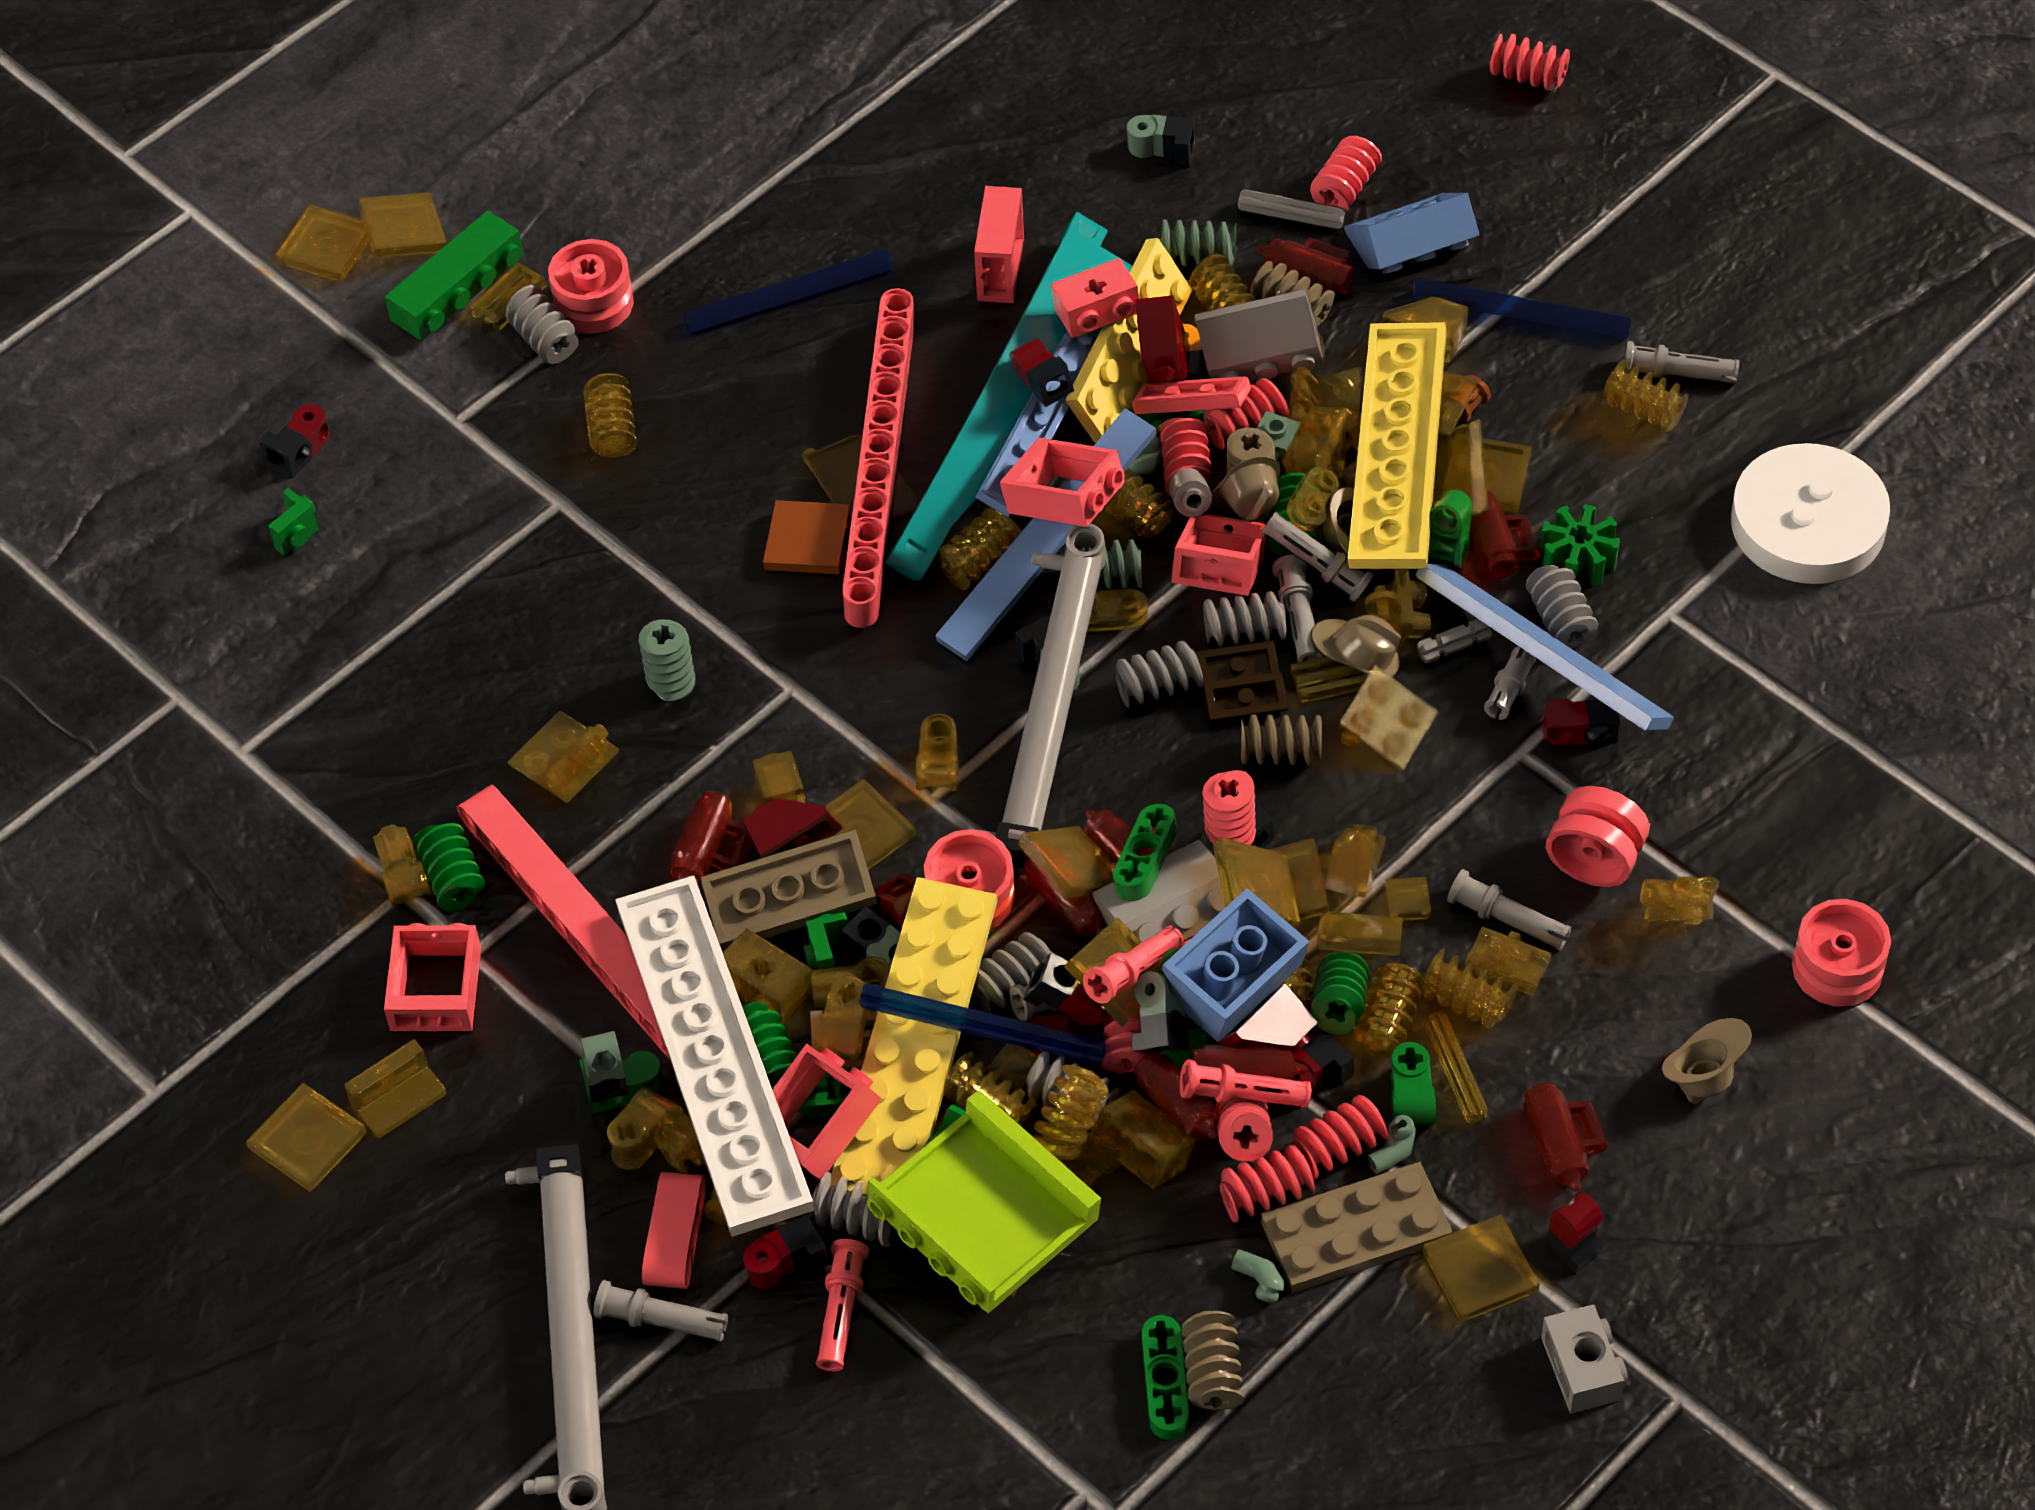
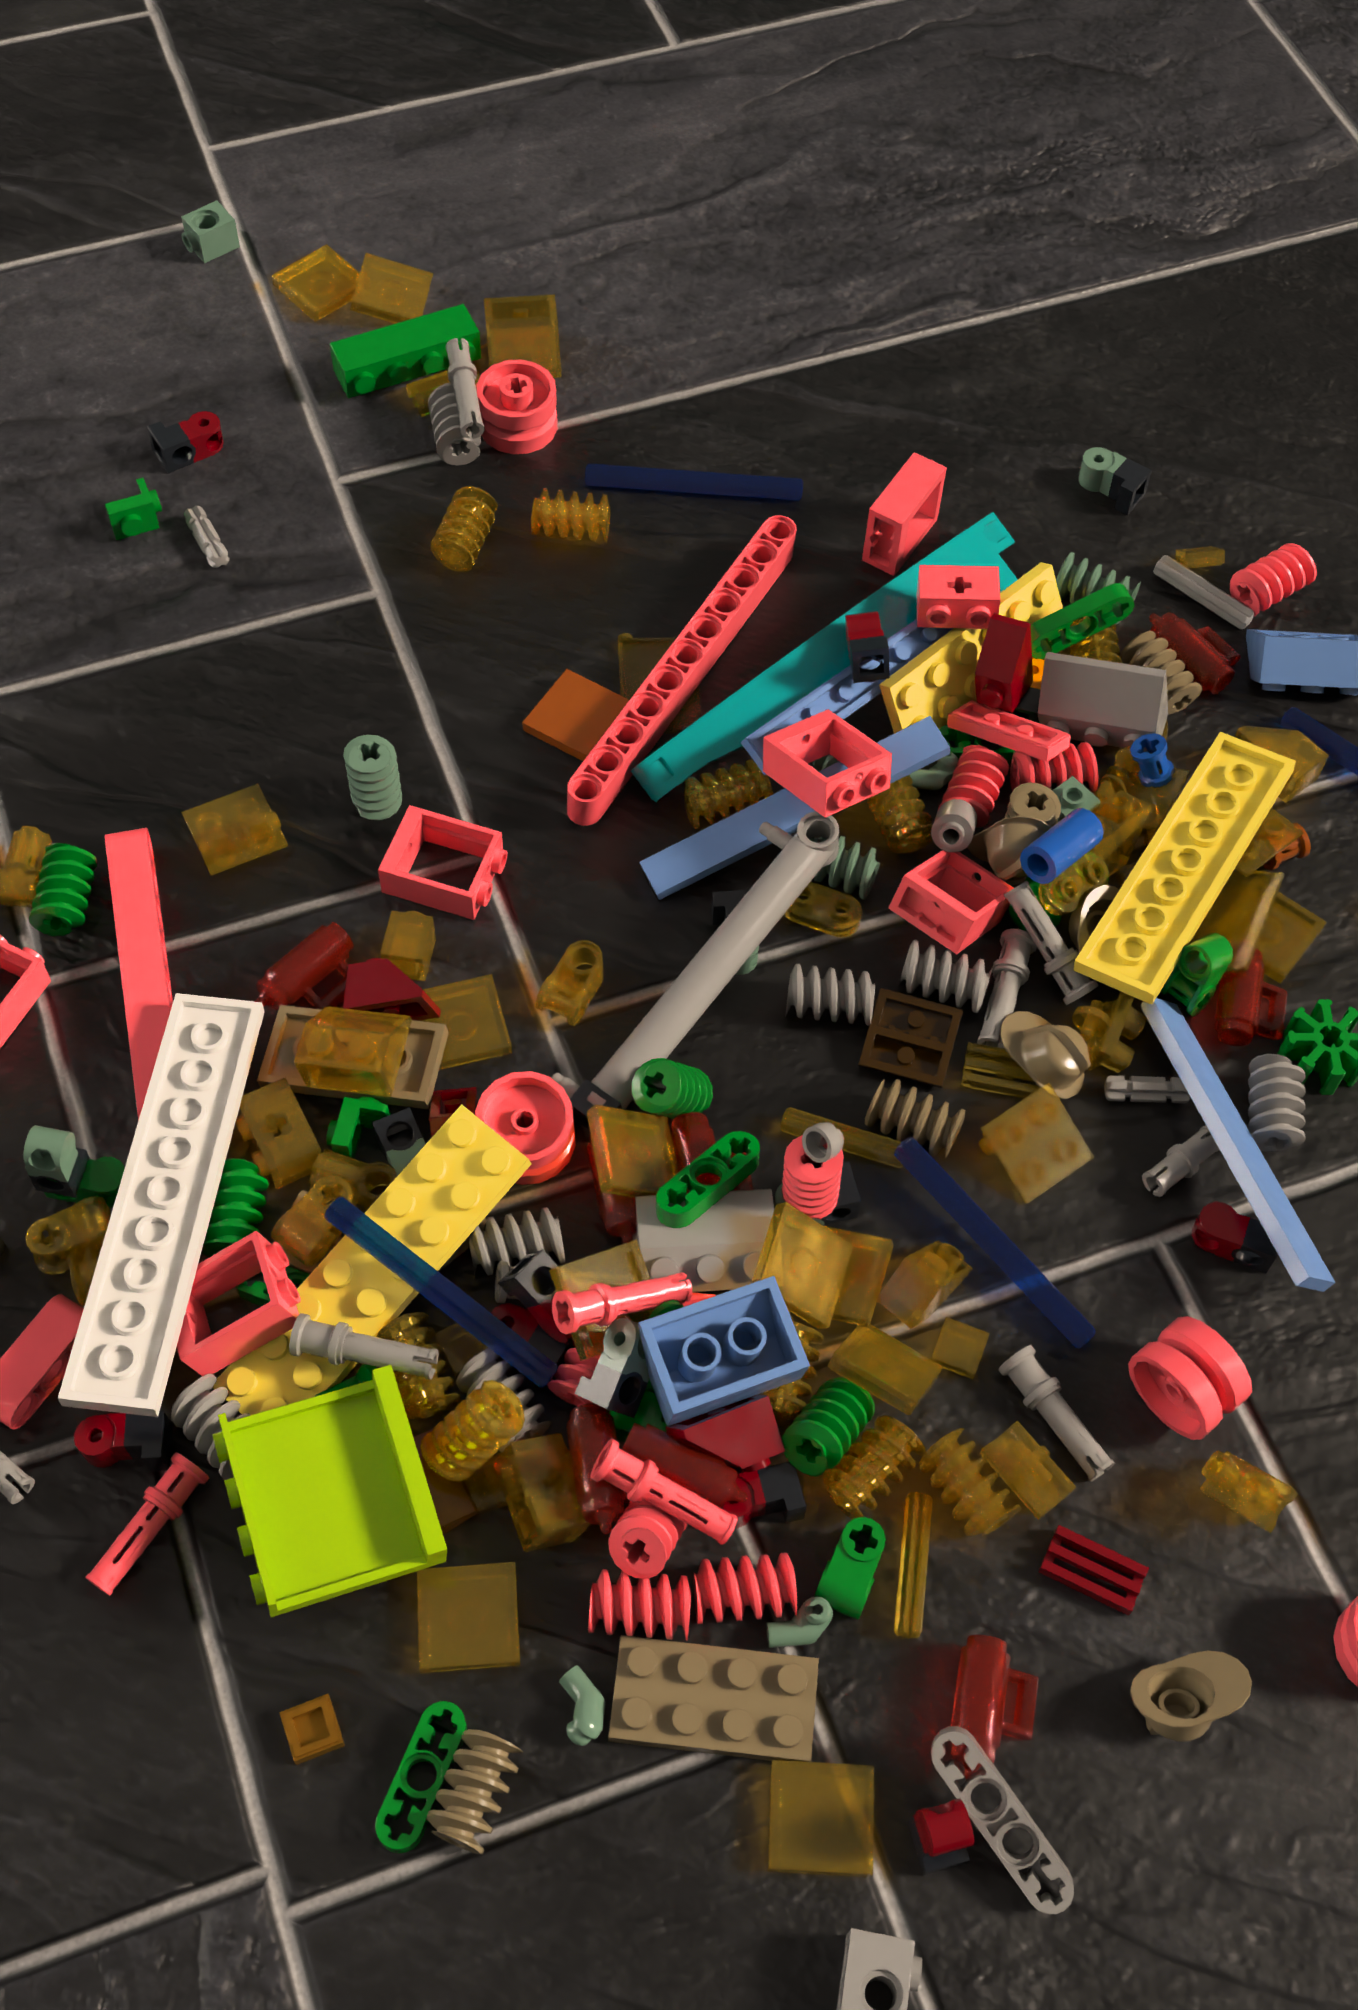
camera: 20 degrees right, 5 degrees up
(190, 236) = (210, 232): none -> sand green brick
(371, 518) = (206, 536): none -> light grey axle
(533, 277) = (463, 376): none -> light grey pin
(554, 216) = (523, 330): none -> clear yellow slope
(700, 363) = (571, 515): none -> clear yellow piece
(767, 679) = (424, 825): none -> coral window
(793, 882) = (352, 1050): none -> clear yellow slope
(925, 1097) = (342, 1344): none -> light grey pin
(1060, 1385) = (312, 1729): none -> pearl gold tile
(1067, 786) = (671, 1088): none -> green piece
(1134, 1256) = (468, 1617): none -> clear yellow tile
(1217, 264) = (1112, 604): none -> green beam
(1224, 770) = (817, 1136): none -> light grey hinge
(1263, 778) = (855, 1140): none -> clear yellow axle
(1273, 179) = (1200, 557): none -> clear yellow tile
(1291, 470) = (1061, 846): none -> blue brick
(1325, 371) = (1152, 760): none -> blue bush
(1393, 806) = (995, 1243): none -> clear blue axle
(1593, 1004) = (1099, 1553): none -> dark red tile
(1616, 1196) = (998, 1821): none -> light grey beam

